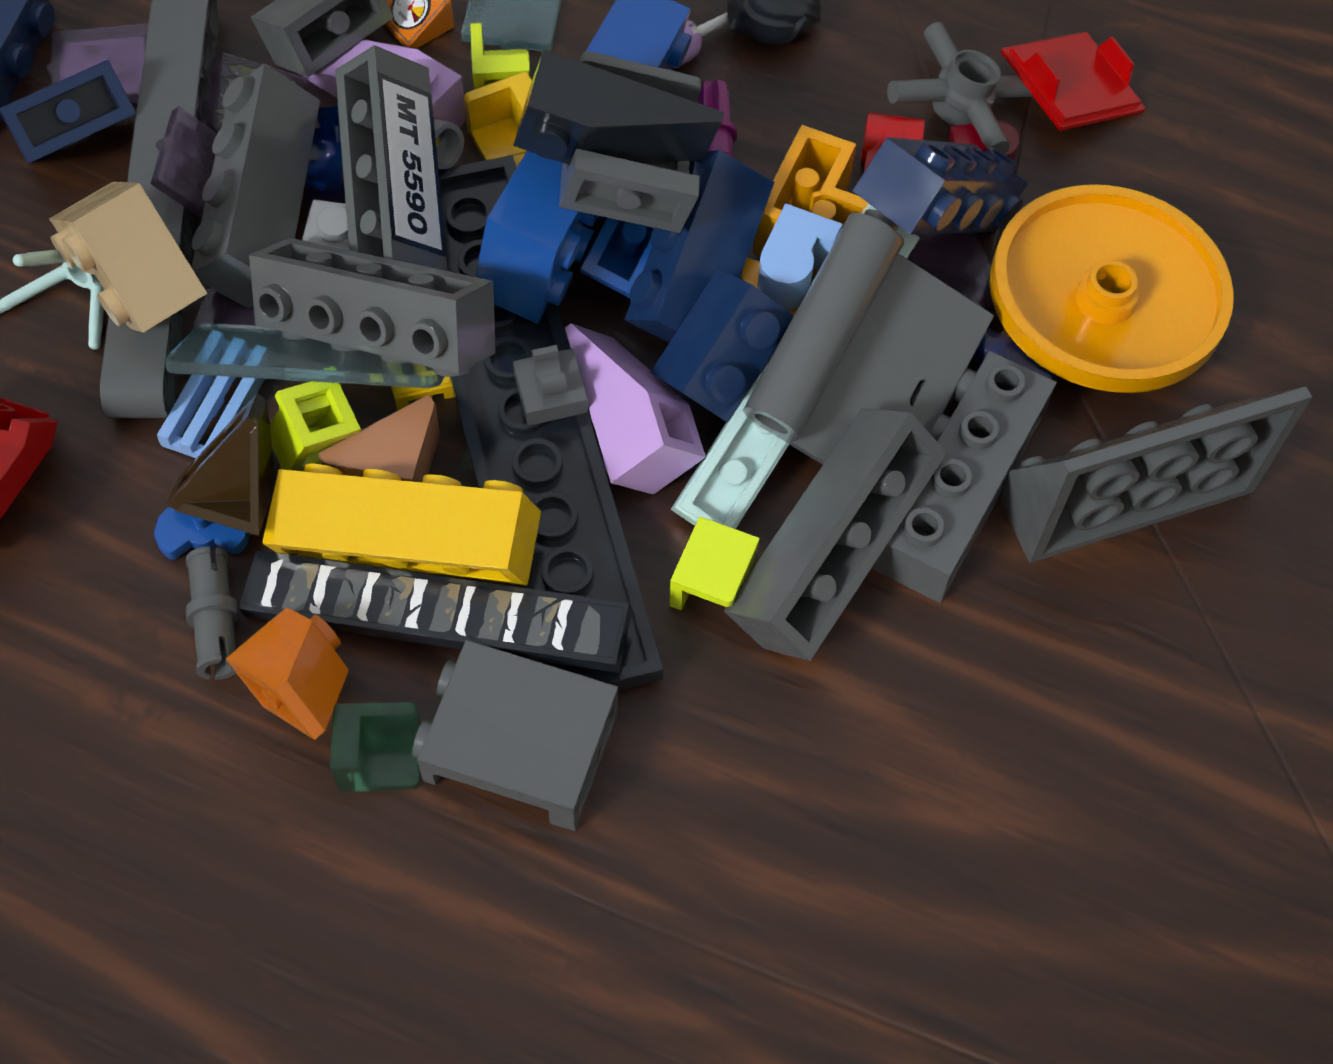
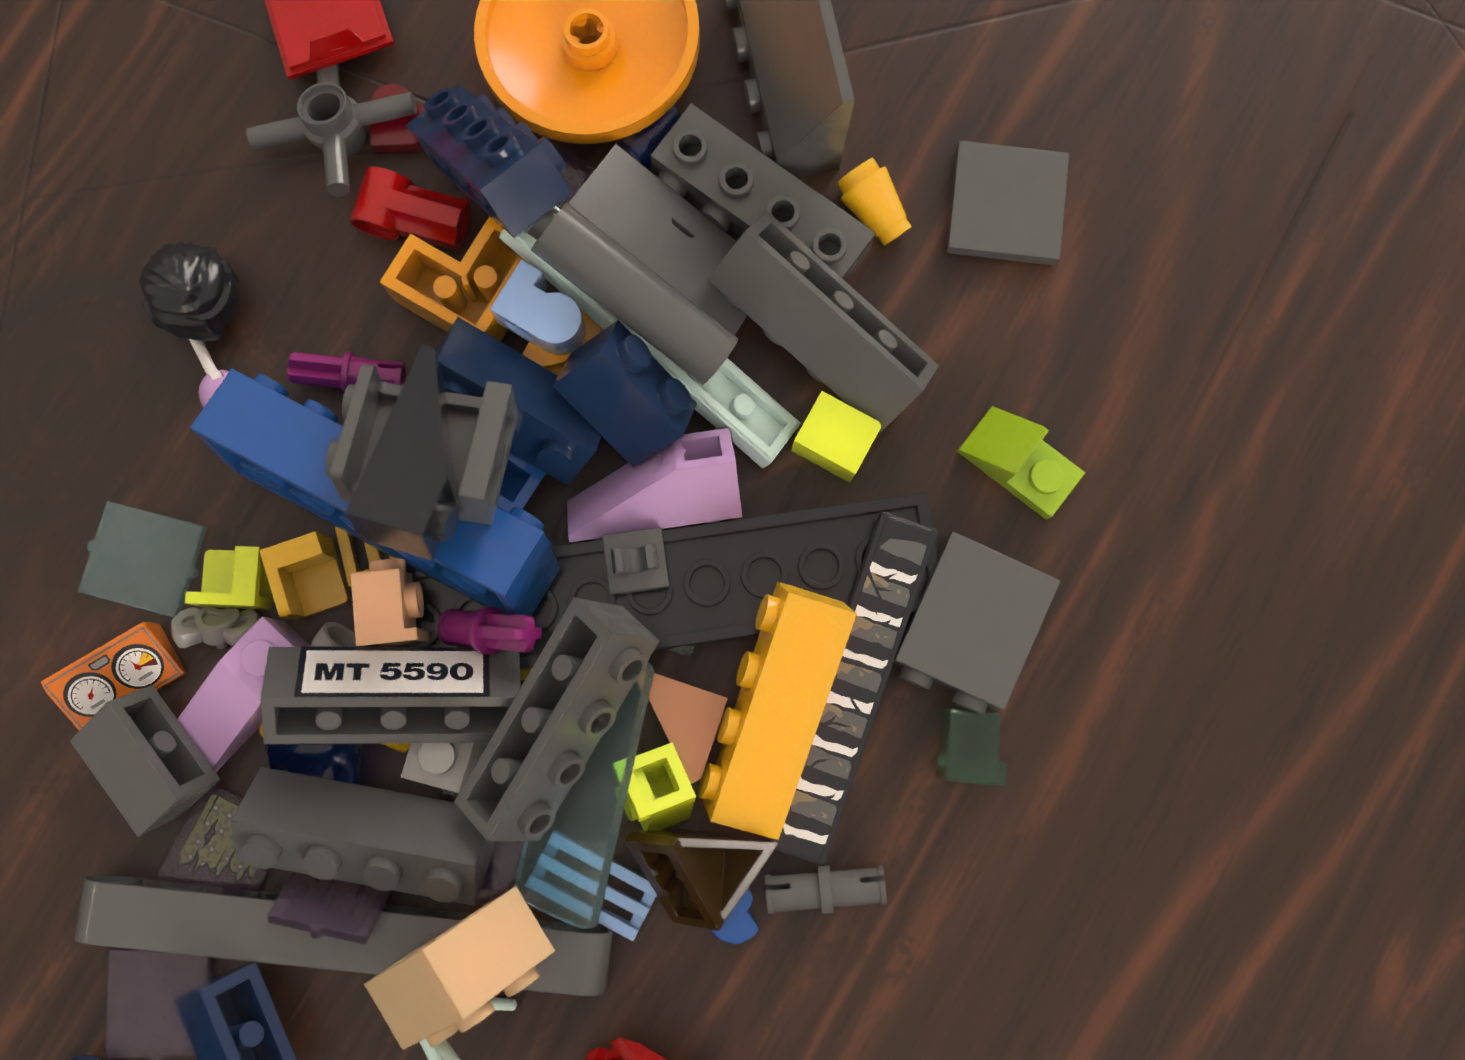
camera: 85 degrees left, 20 degrees up
(293, 670) = (909, 815): orange slope -> none
(454, 51) = (211, 626): none -> light grey piece
(461, 245) = (488, 630): none -> magenta axle
(476, 170) = (387, 605): none -> light nougat brick
(715, 783) = (1020, 461): none -> lime slope
(995, 589) = (874, 201): none -> yellow cone
(1027, 740) = (1007, 203): none -> dark grey tile

